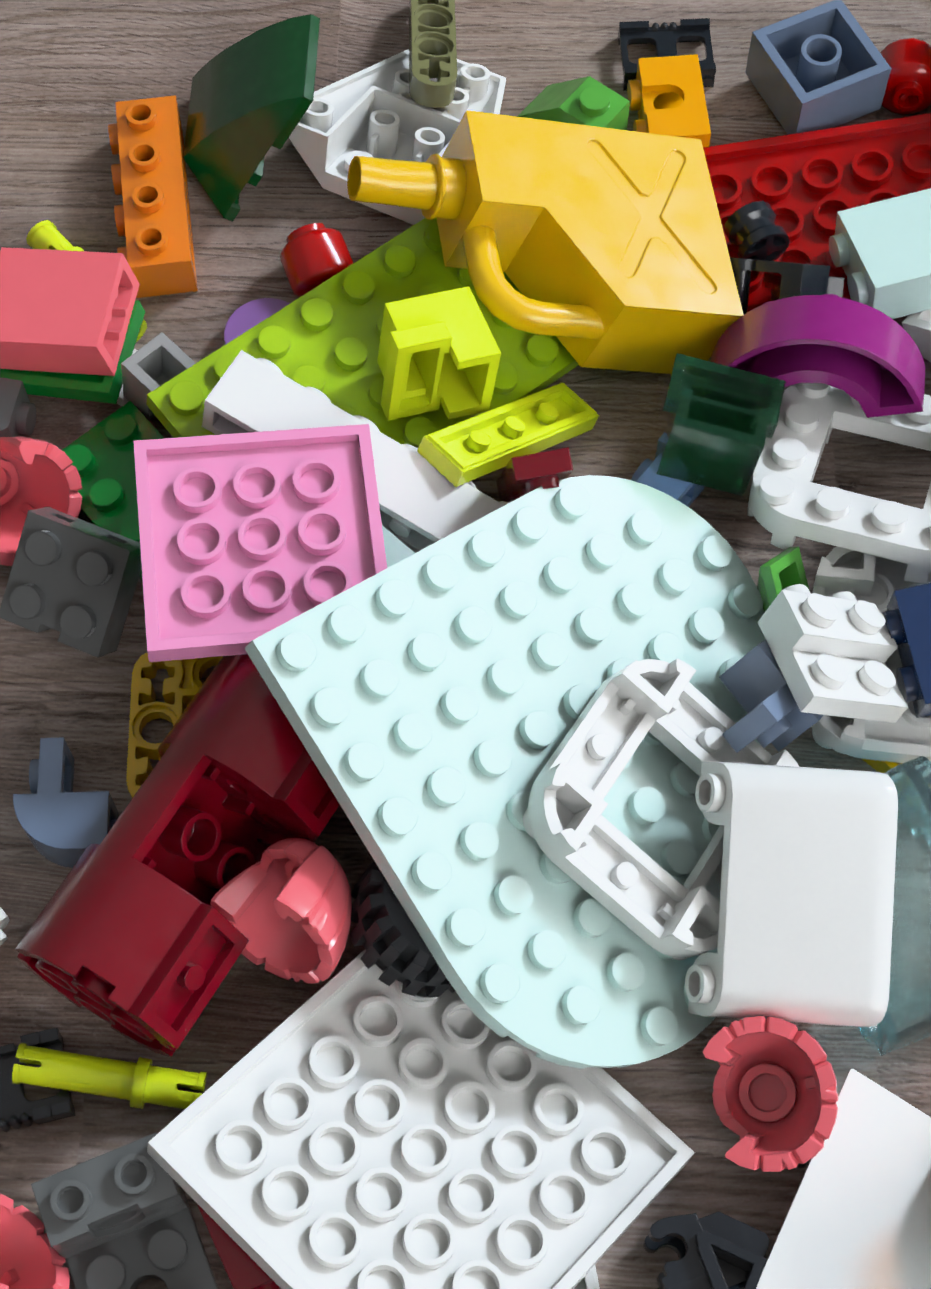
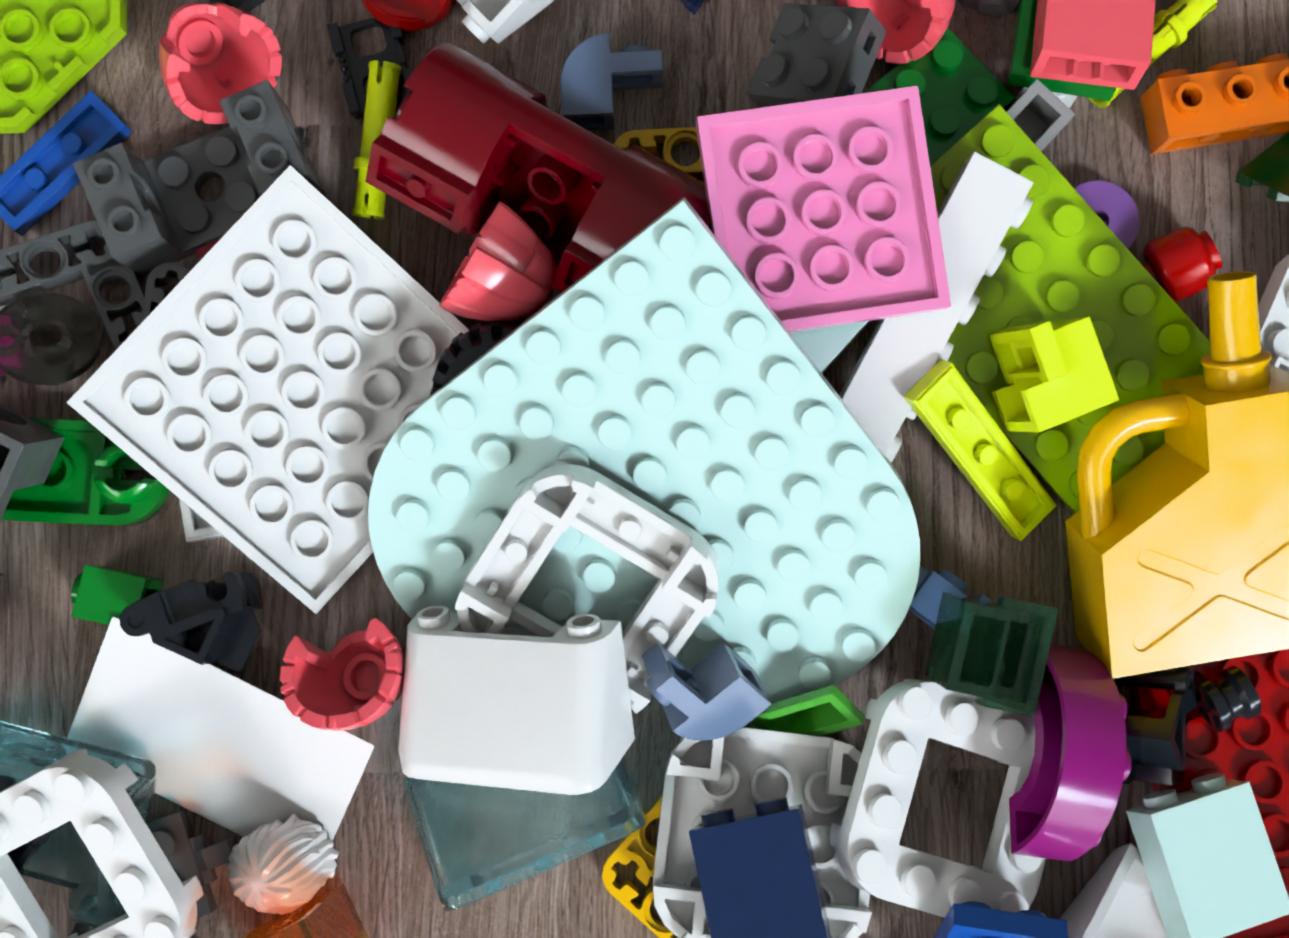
camera: 90 degrees right, 20 degrees up
(533, 471) = (924, 472): dark red plate -> none
(833, 654) = (736, 748): white plate -> none

